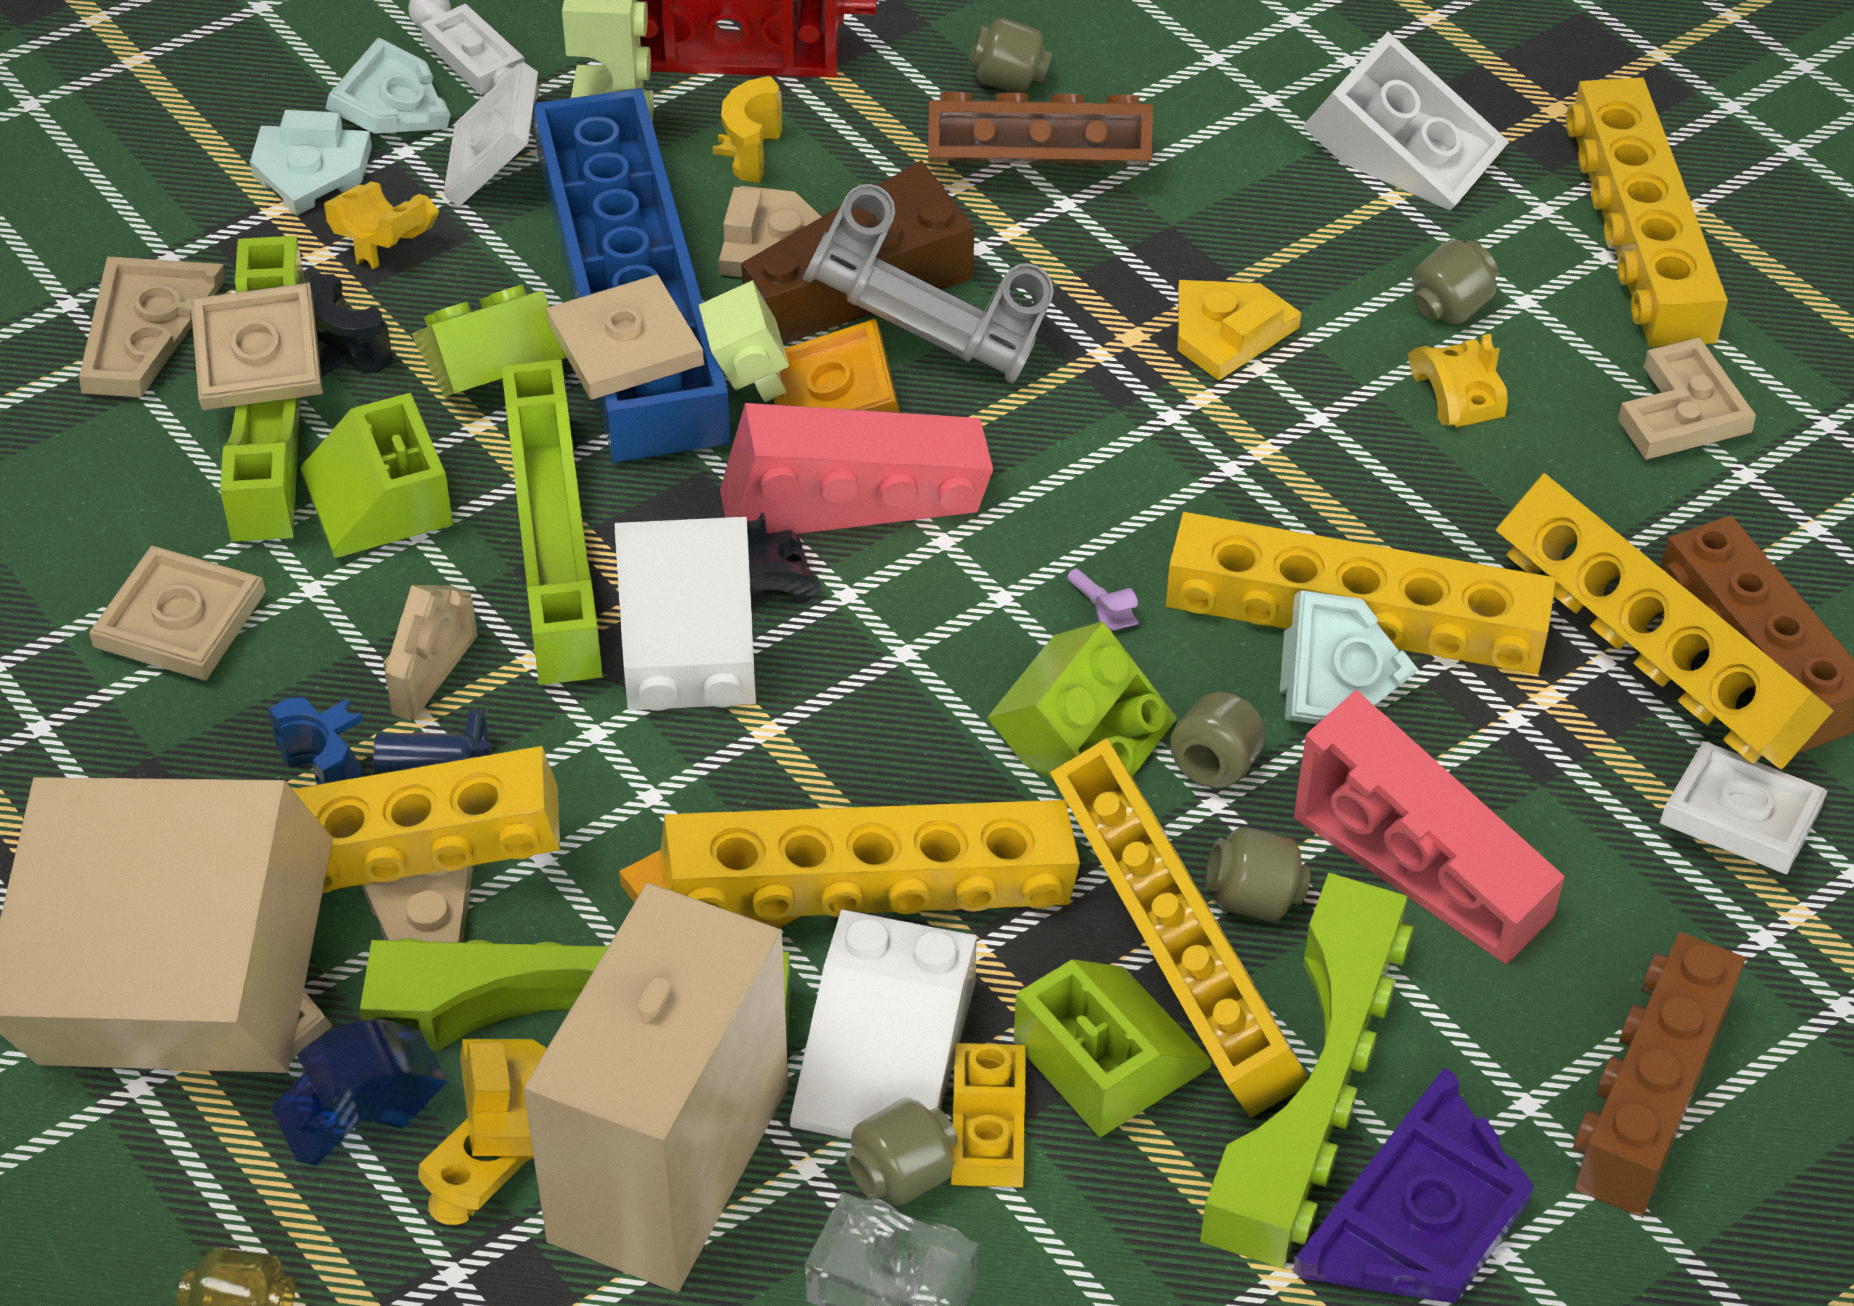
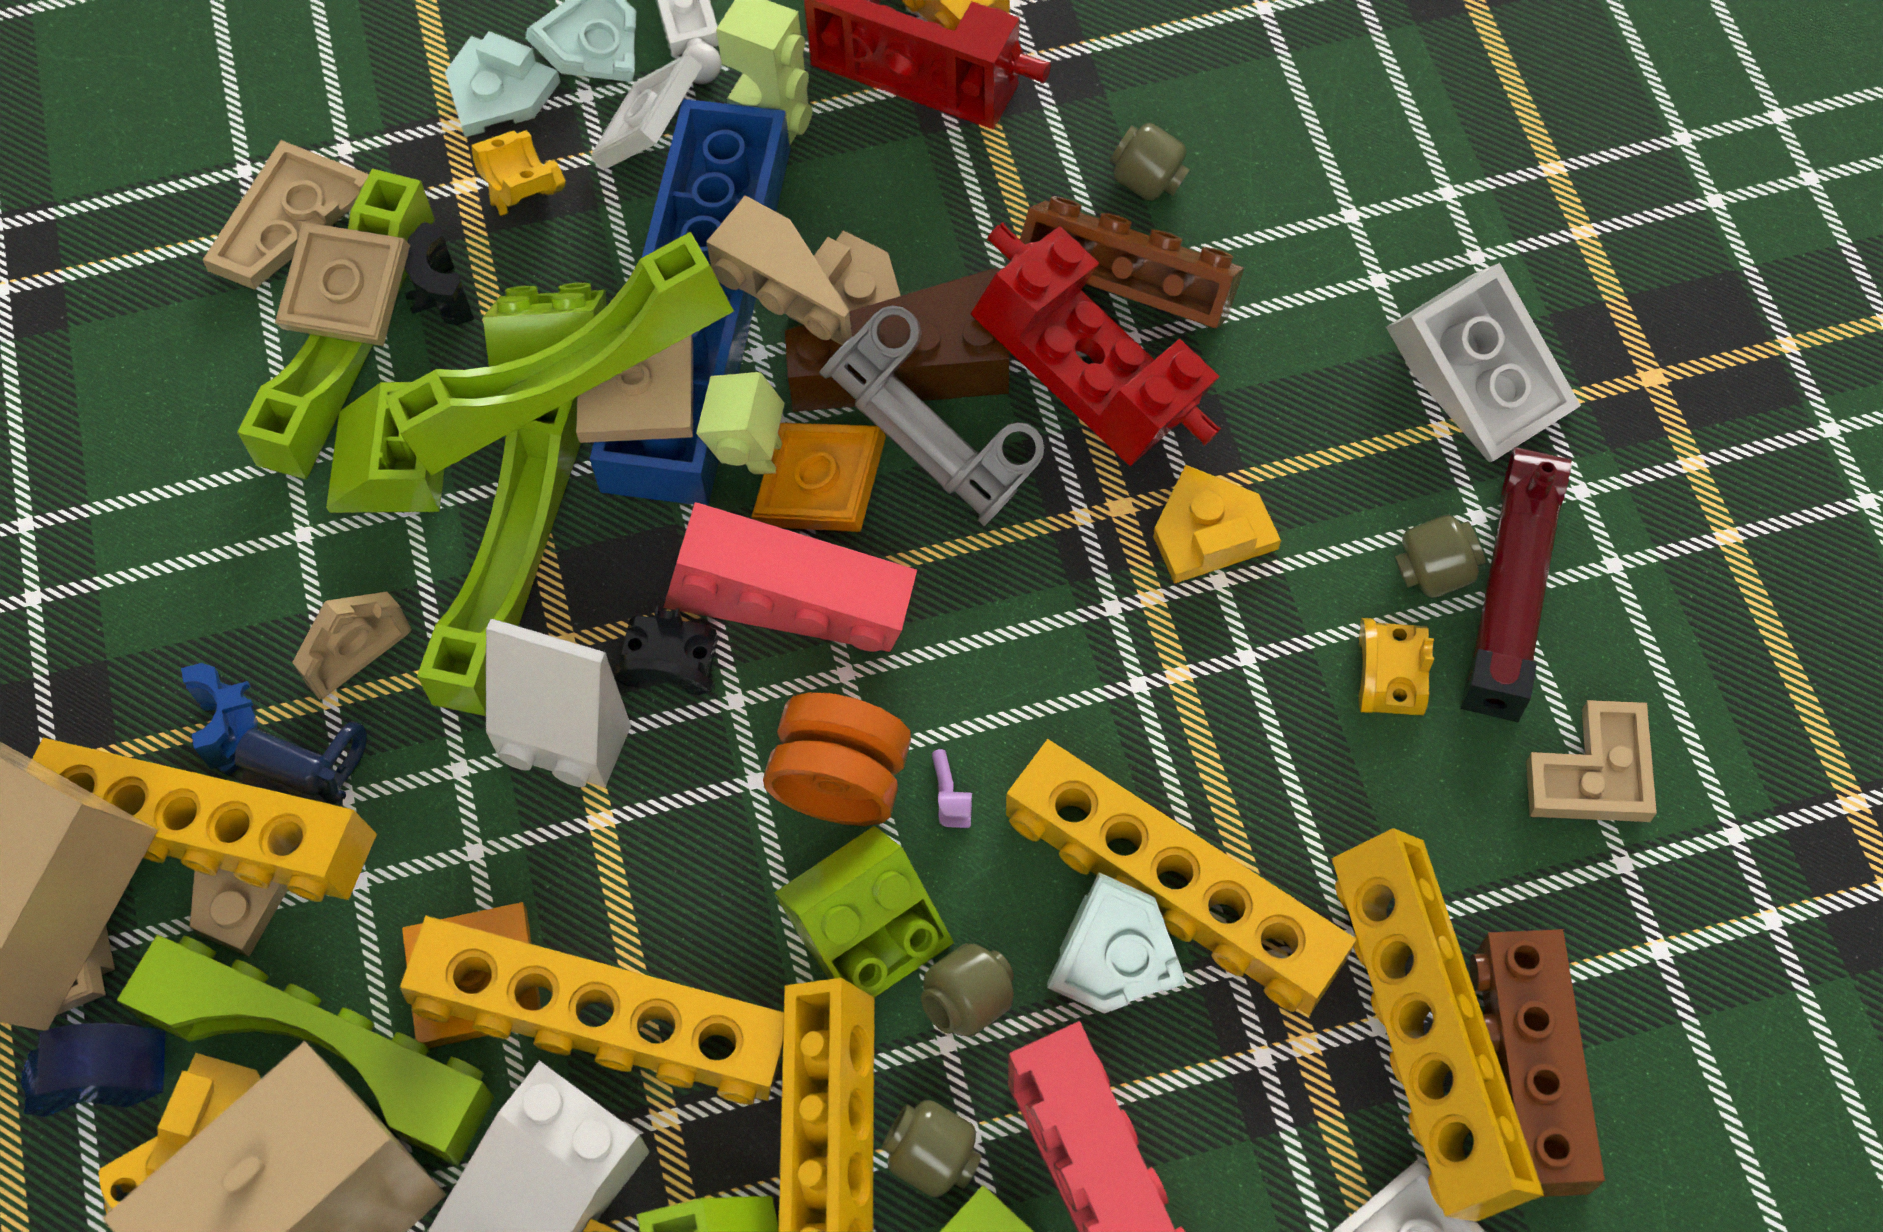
camera: 25 degrees right, 15 degrees up
(177, 612) = (178, 527): tan plate -> none
(467, 391) = (464, 410): none -> lime arch
(721, 201) = (772, 262): none -> tan slope
(749, 117) = (875, 159): yellow piece -> none
(992, 584) = (837, 759): none -> orange wheel
(1019, 199) = (1045, 318): none -> red brick
(1559, 351) = (1504, 652): none -> dark red piece
(1646, 212) = (1662, 662): yellow brick -> none

